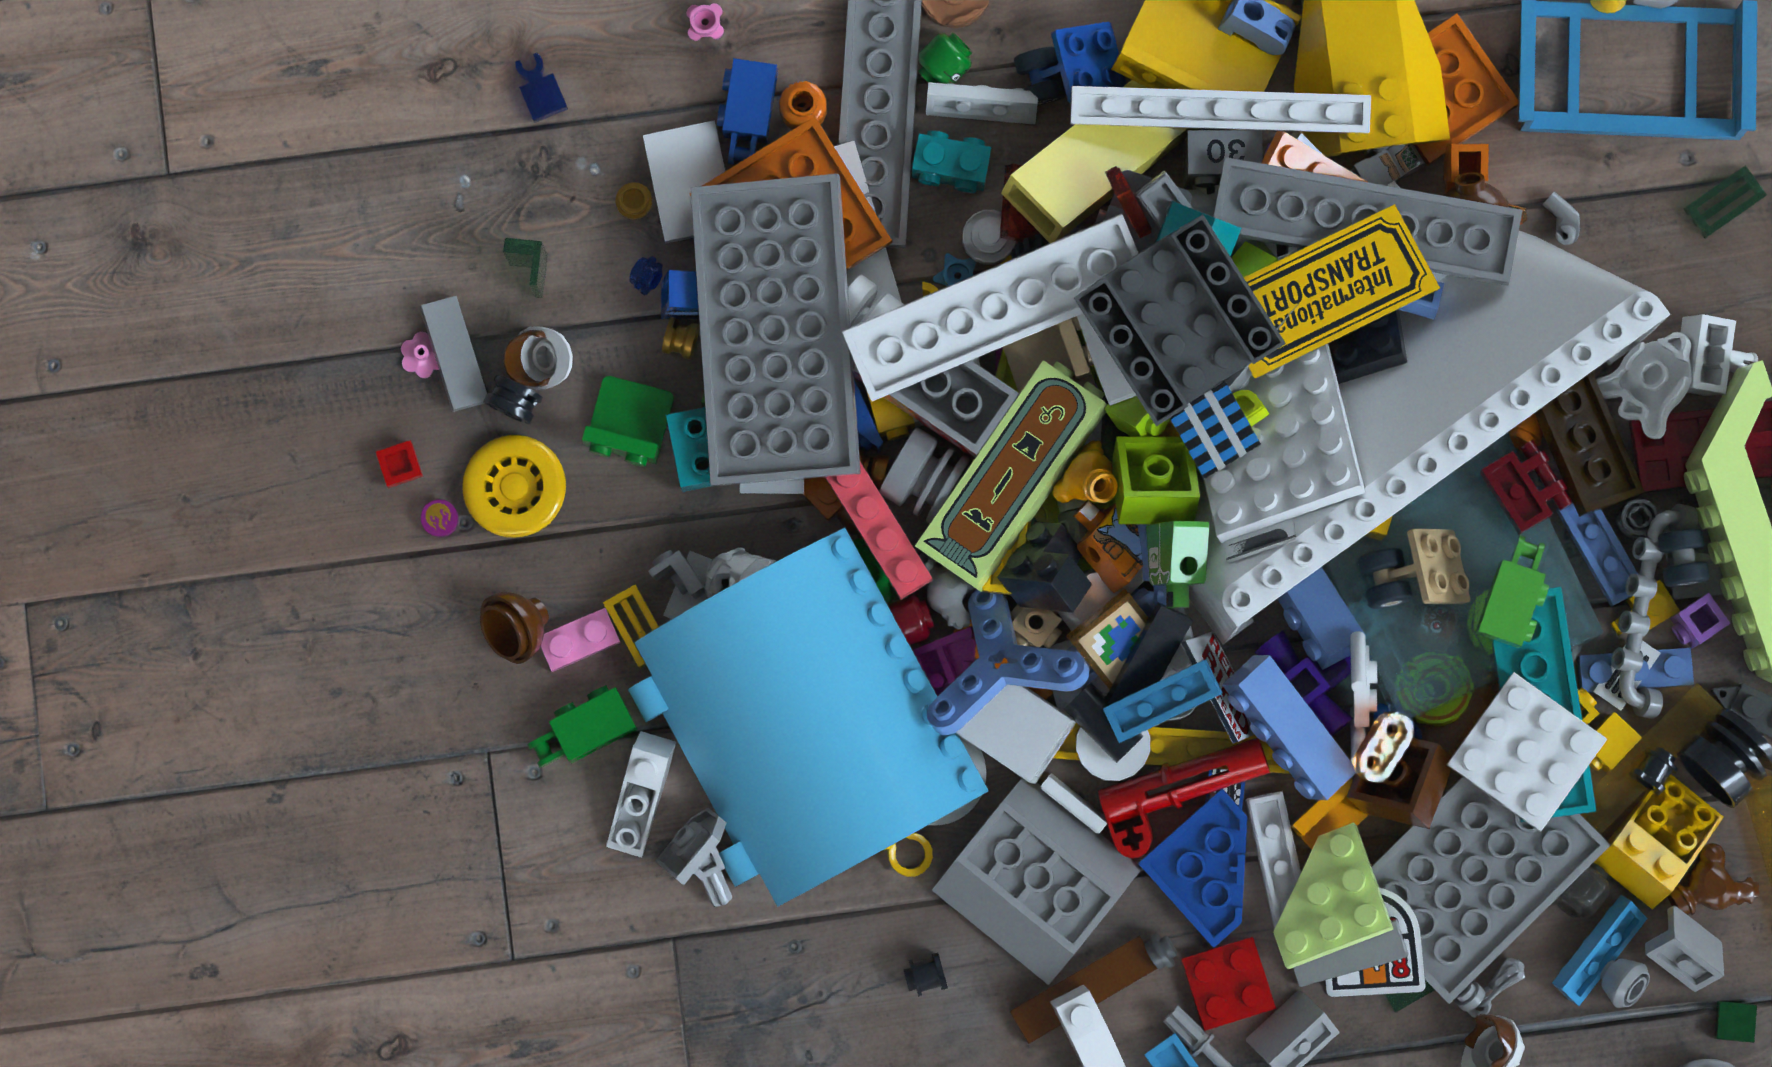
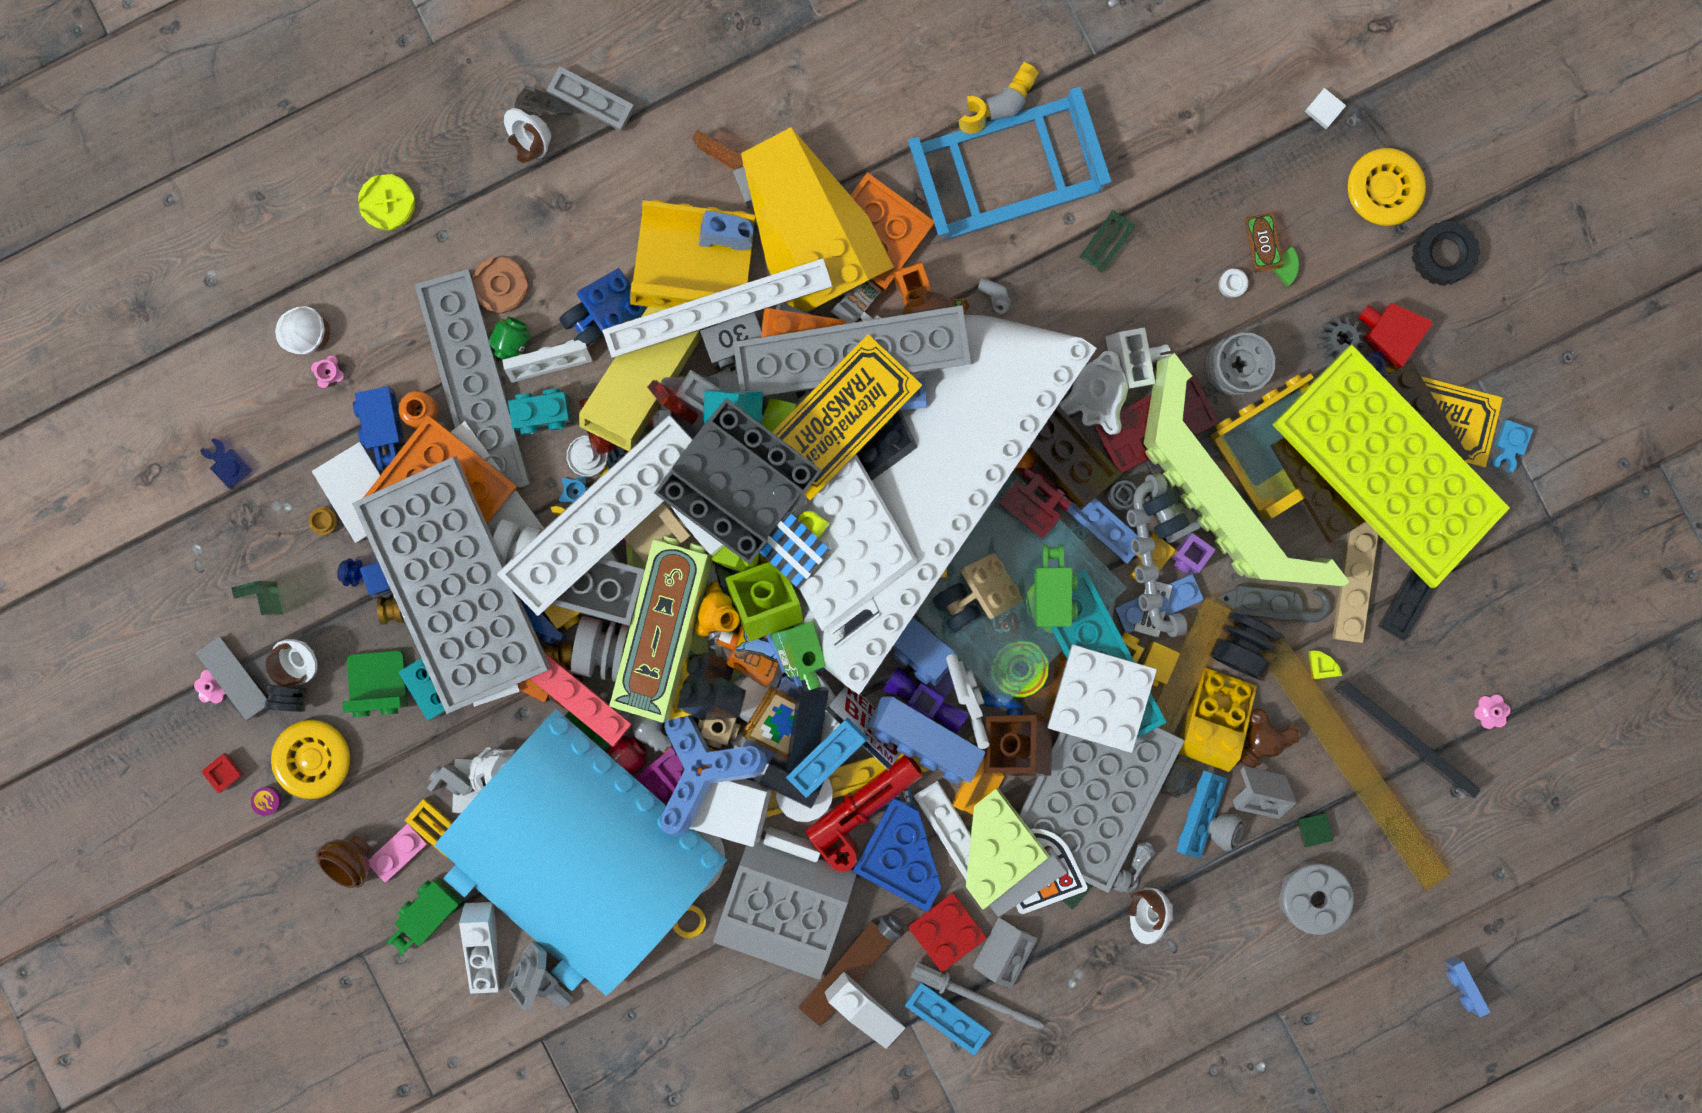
camera: 15 degrees left, 5 degrees up
(925, 975) = (729, 1004): black brick -> none
(1384, 749) = (999, 731): plate -> none
(1654, 769) = (1197, 673): black brick -> none

